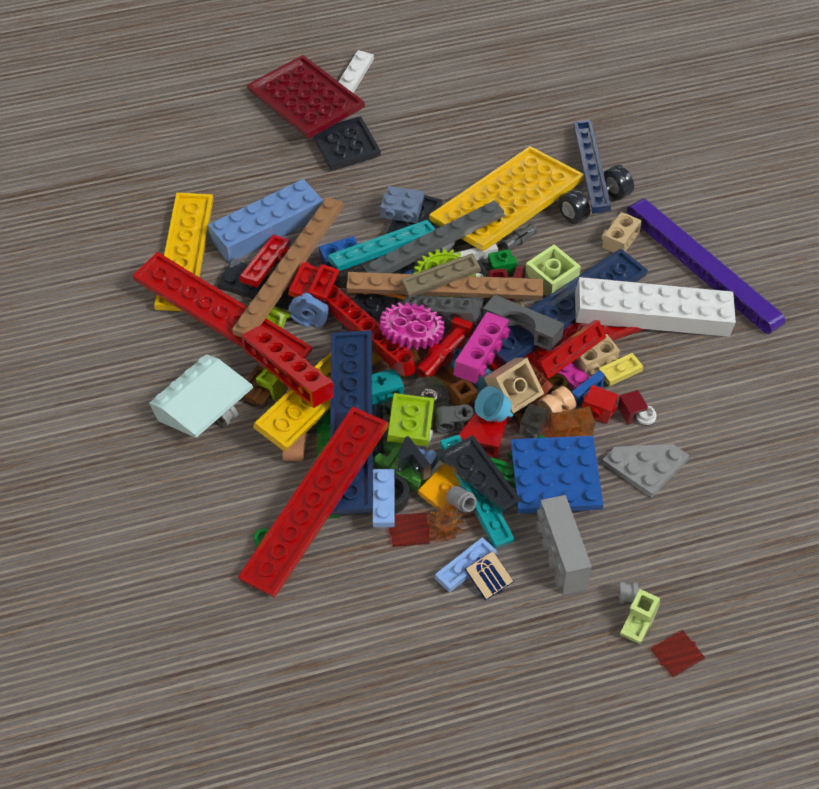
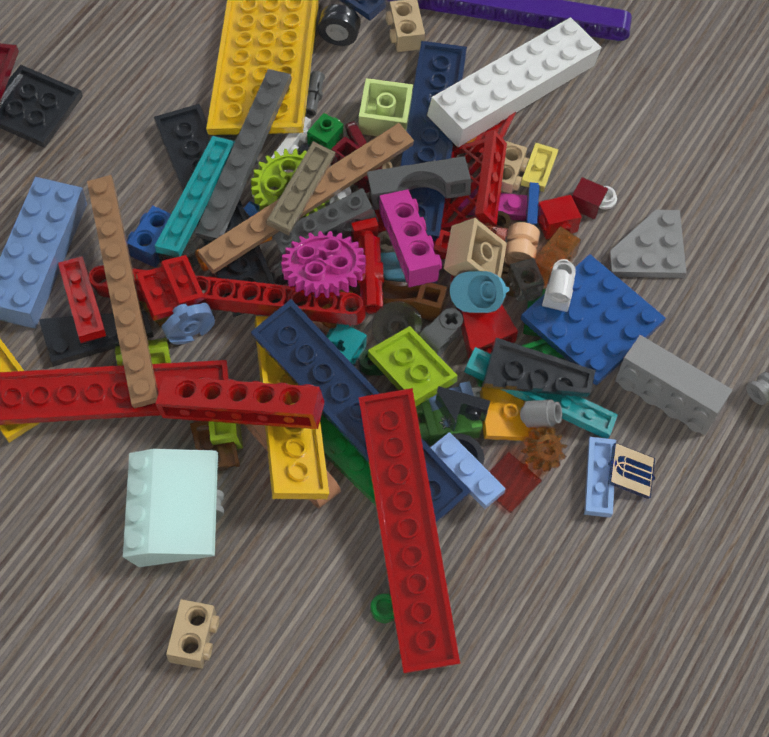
camera: 45 degrees left, 10 degrees up
(152, 469) = (186, 633): none -> tan brick
(402, 204) = (167, 136): sand blue plate -> none
(541, 434) = (560, 286): none -> white piece

